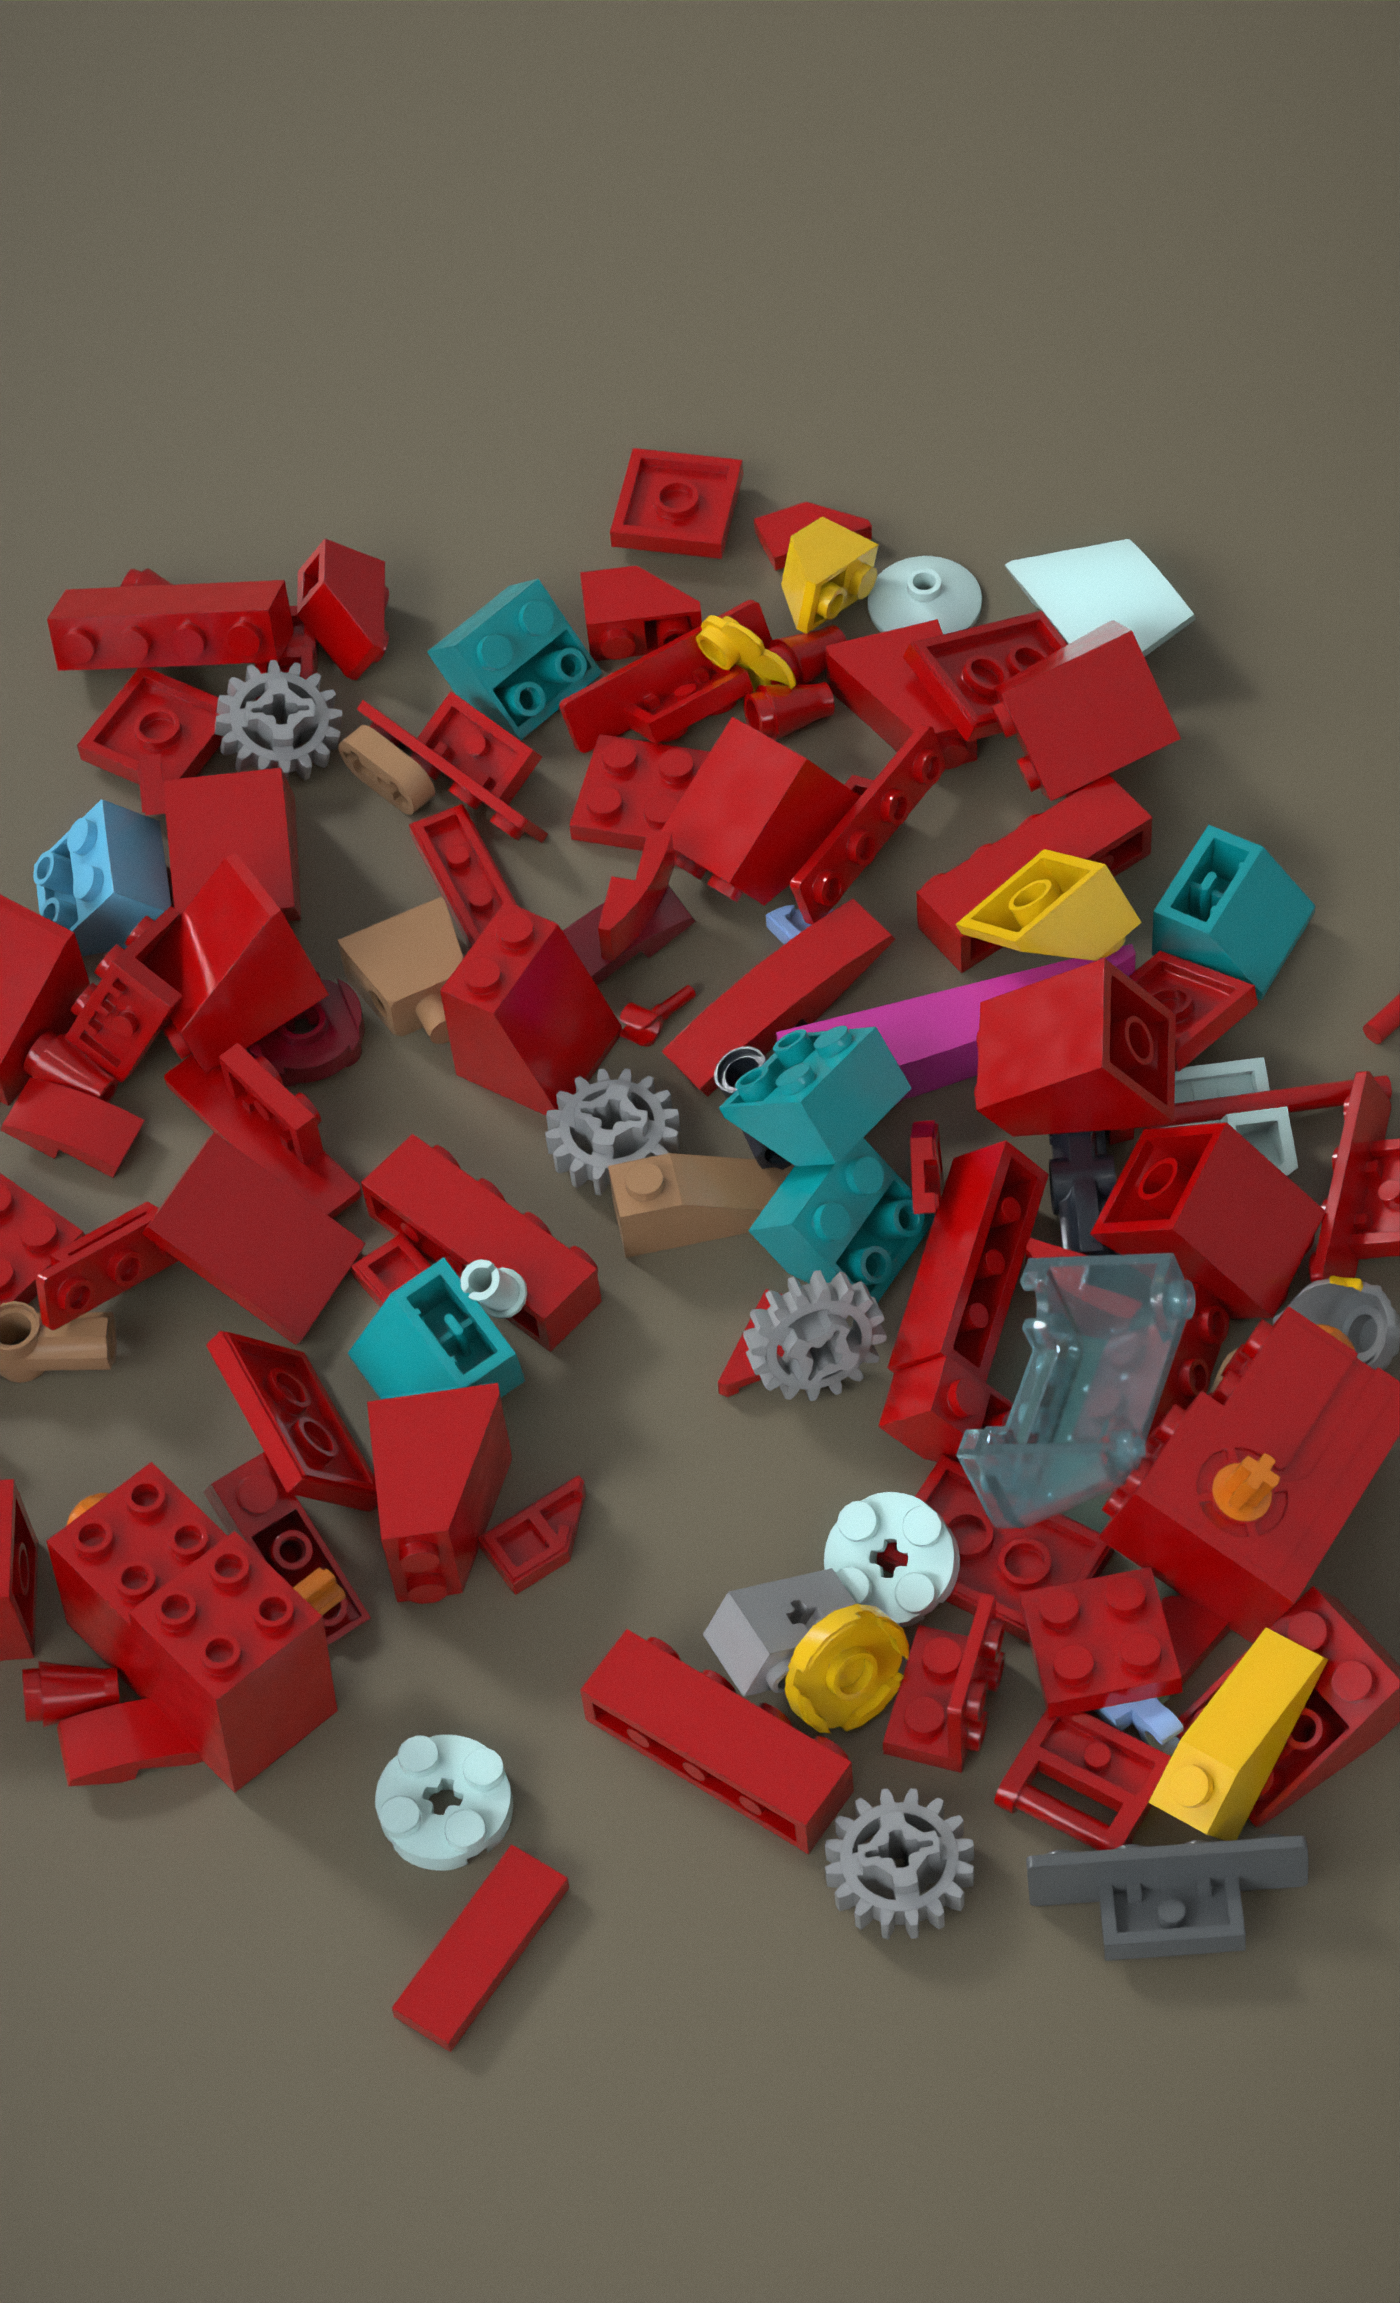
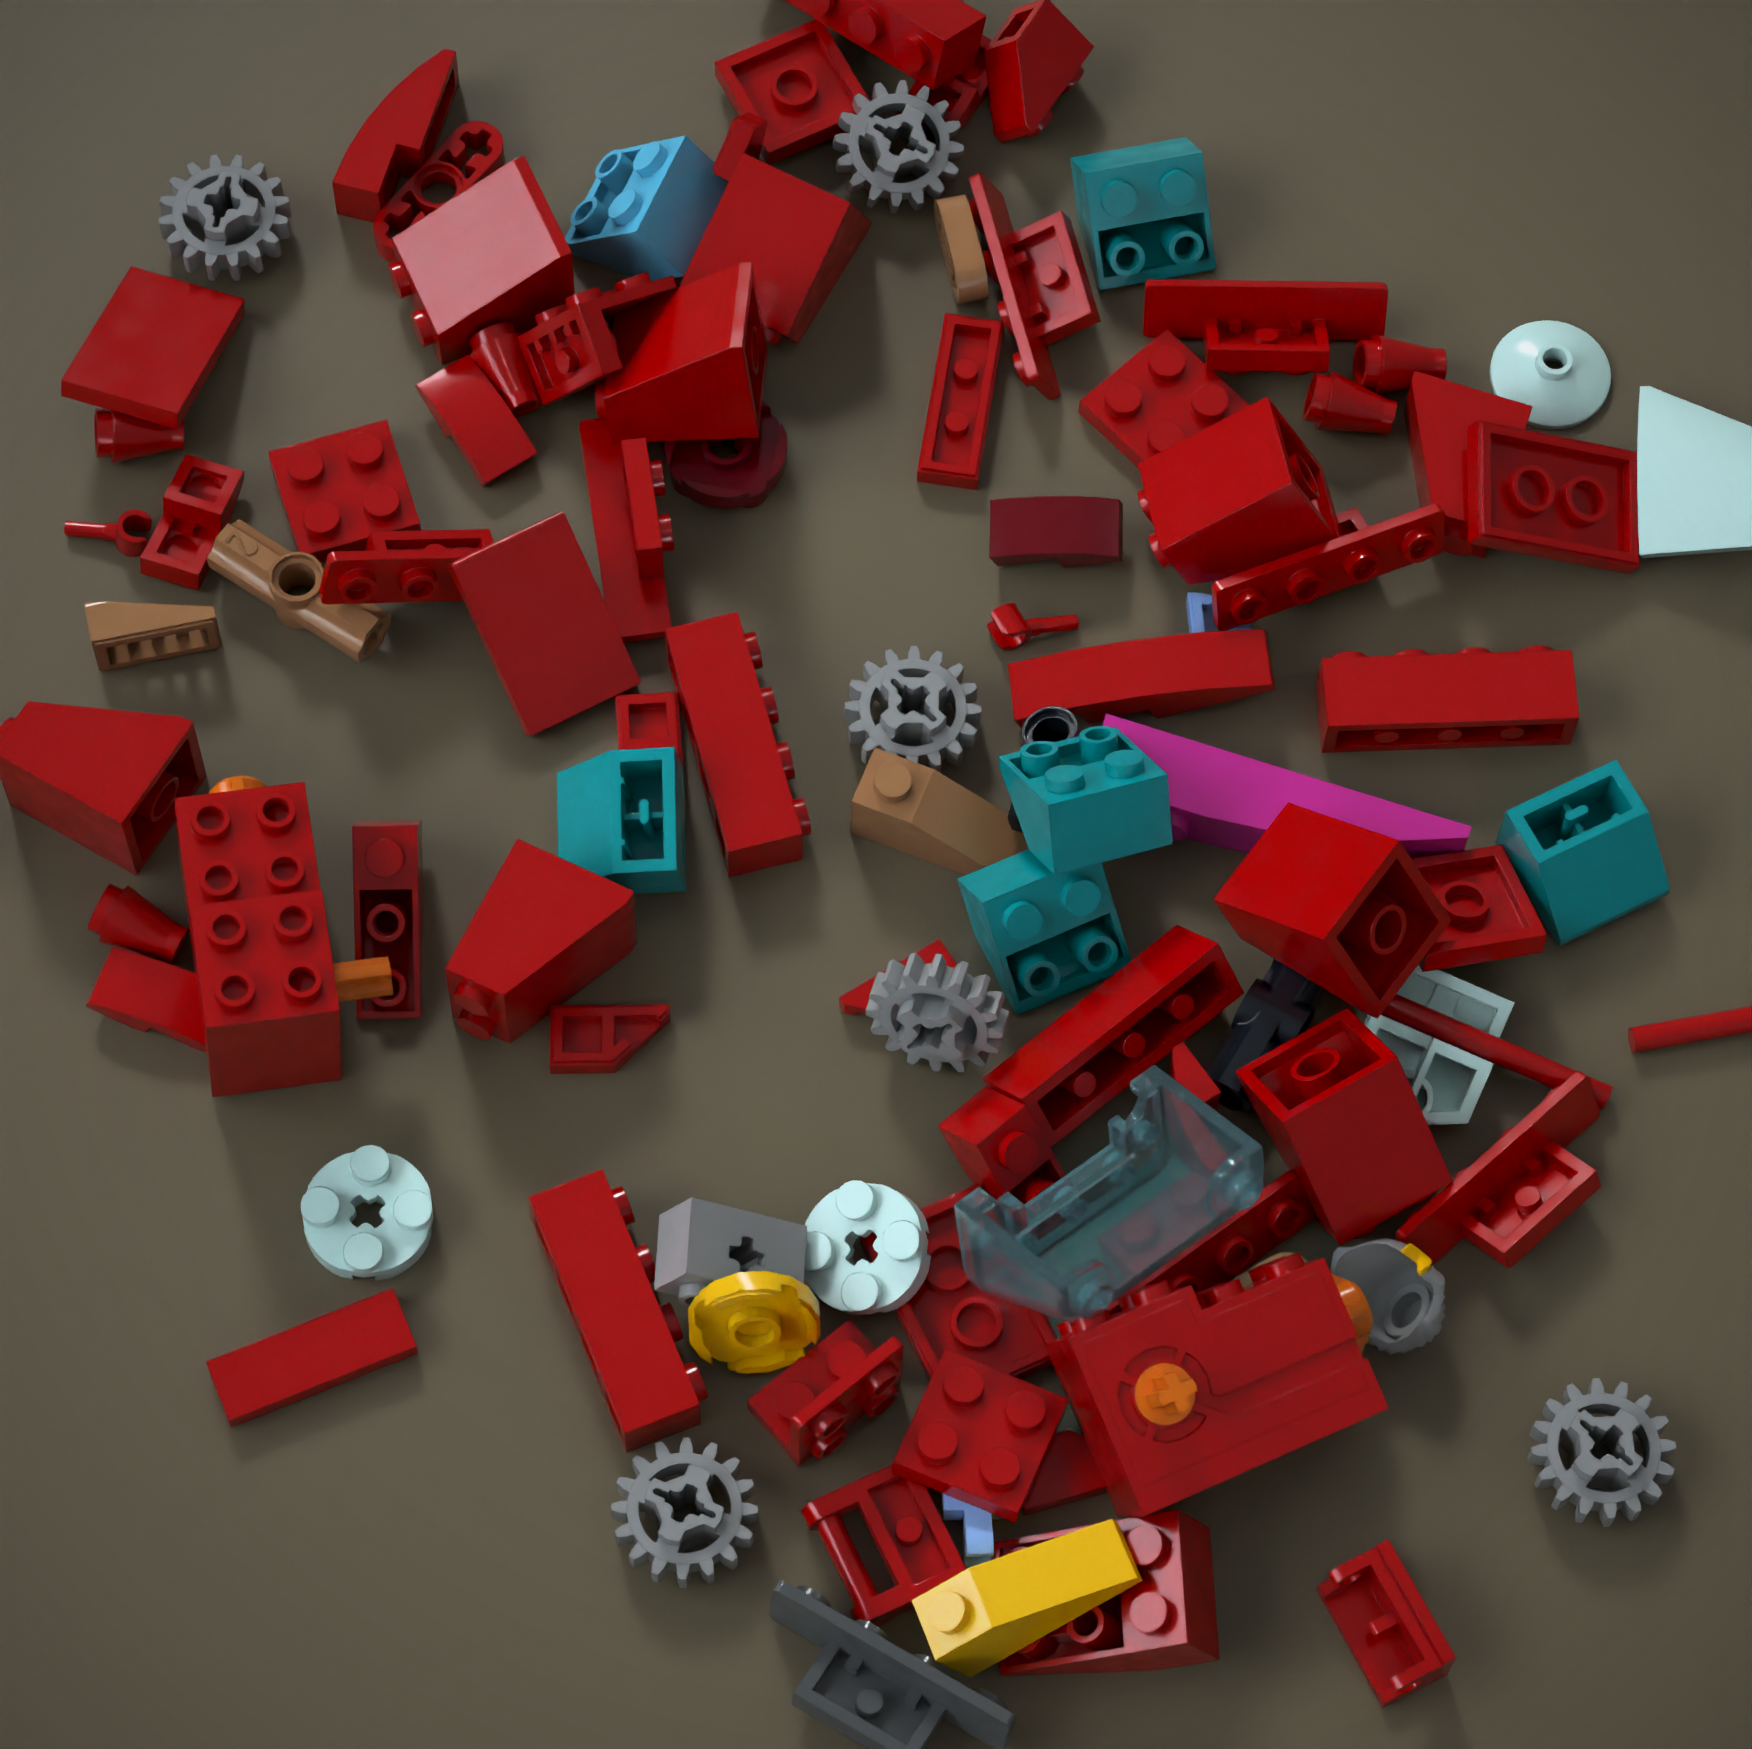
camera: 25 degrees right, 10 degrees up
(294, 1421) = (463, 805): red tile -> none
(403, 967) = (851, 457): medium nougat torso -> none
(497, 1290) = (702, 803): light aqua pin -> none
(526, 1012) = (909, 561): red slope -> none
(633, 612) = (1275, 230): red slope -> none
(633, 902) = (1063, 518): red slope -> none
(676, 503) = (1395, 143): red plate -> none
(730, 643) = (1328, 317): yellow plate -> none
(777, 527) = (1492, 243): red tile -> none
(826, 572) = (1472, 297): yellow slope -> none
(926, 1166) = (1144, 919): red tile -> none
(1055, 909) = (1411, 758): yellow slope -> none
(1084, 711) = (1589, 580): red slope -> none

